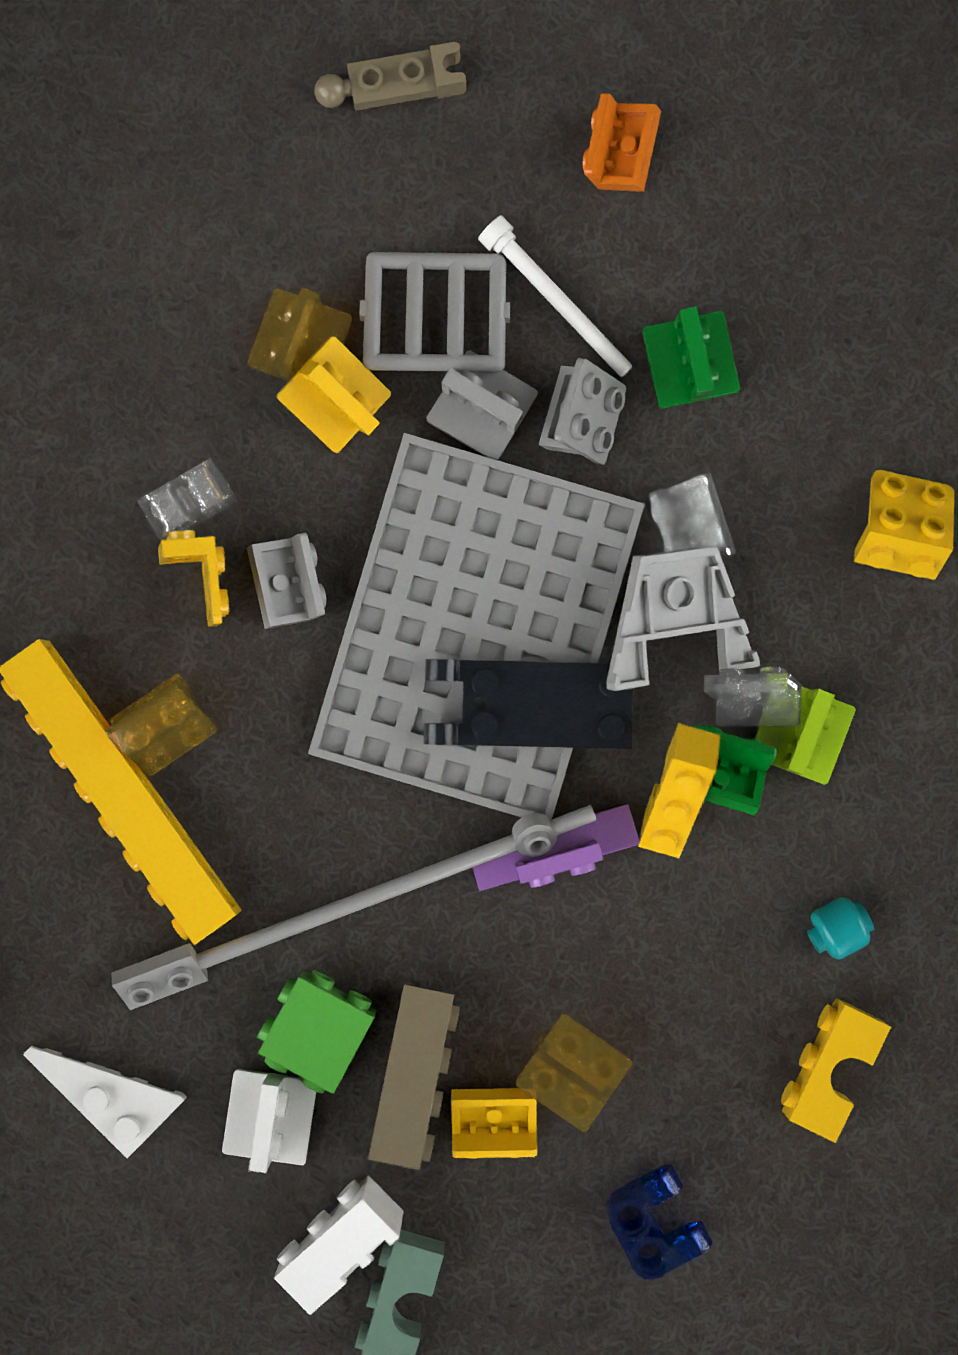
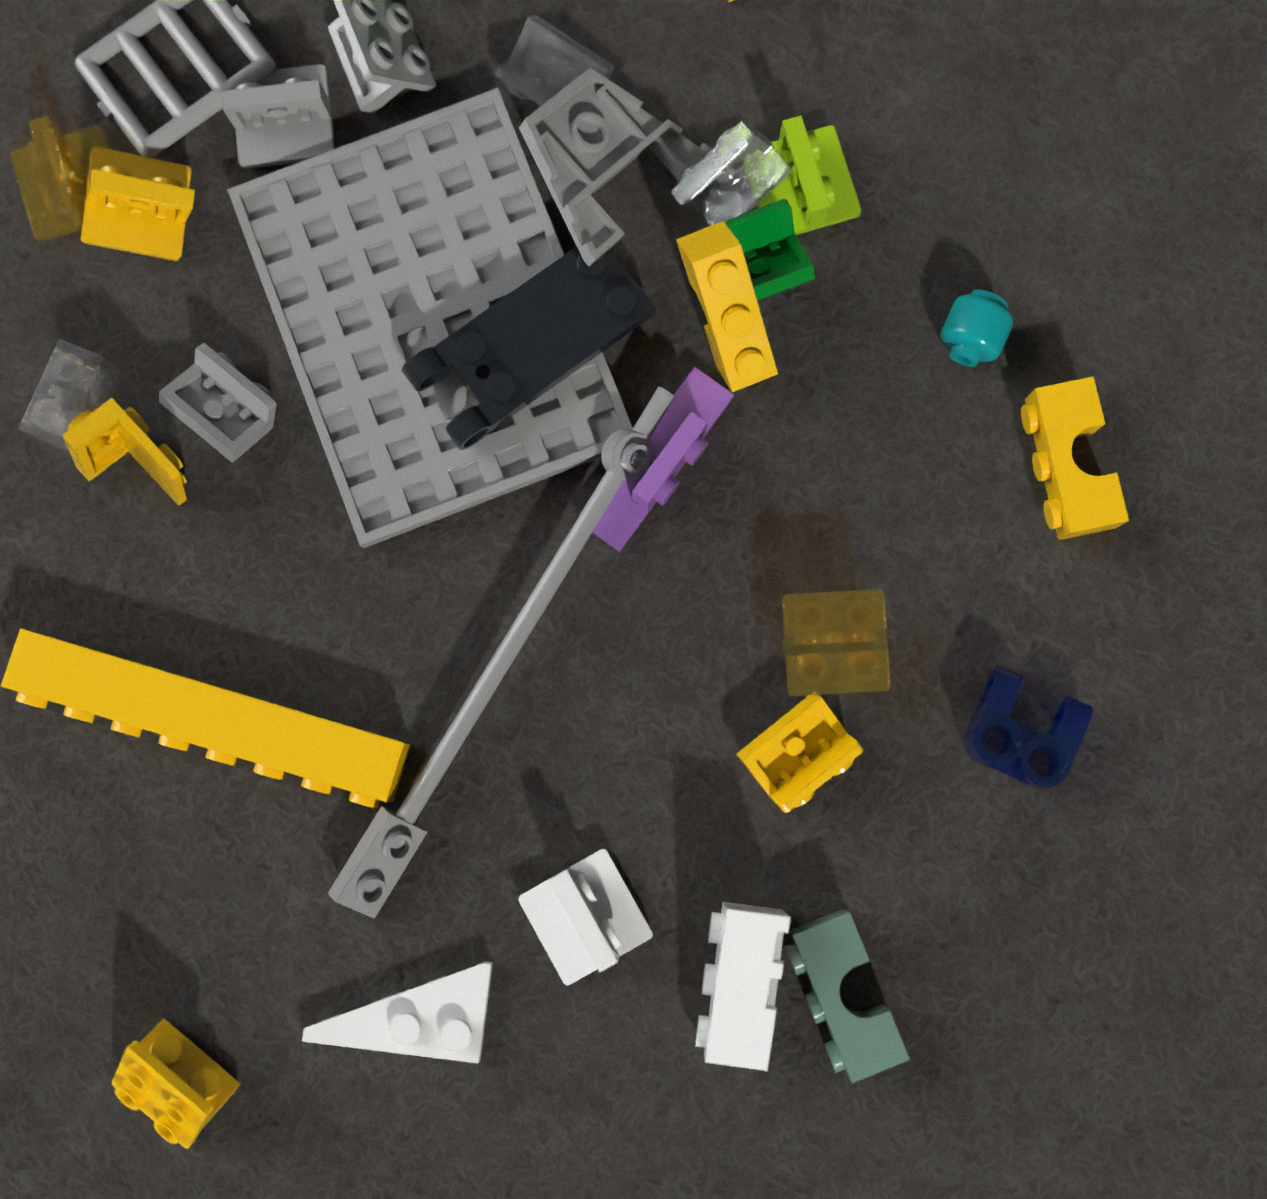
camera: 30 degrees left, 5 degrees down
(160, 726) = (202, 625): clear yellow bracket -> none
(316, 1030) = (564, 796): bright green brick -> none
(412, 1076) = (690, 770): dark tan wedge -> none

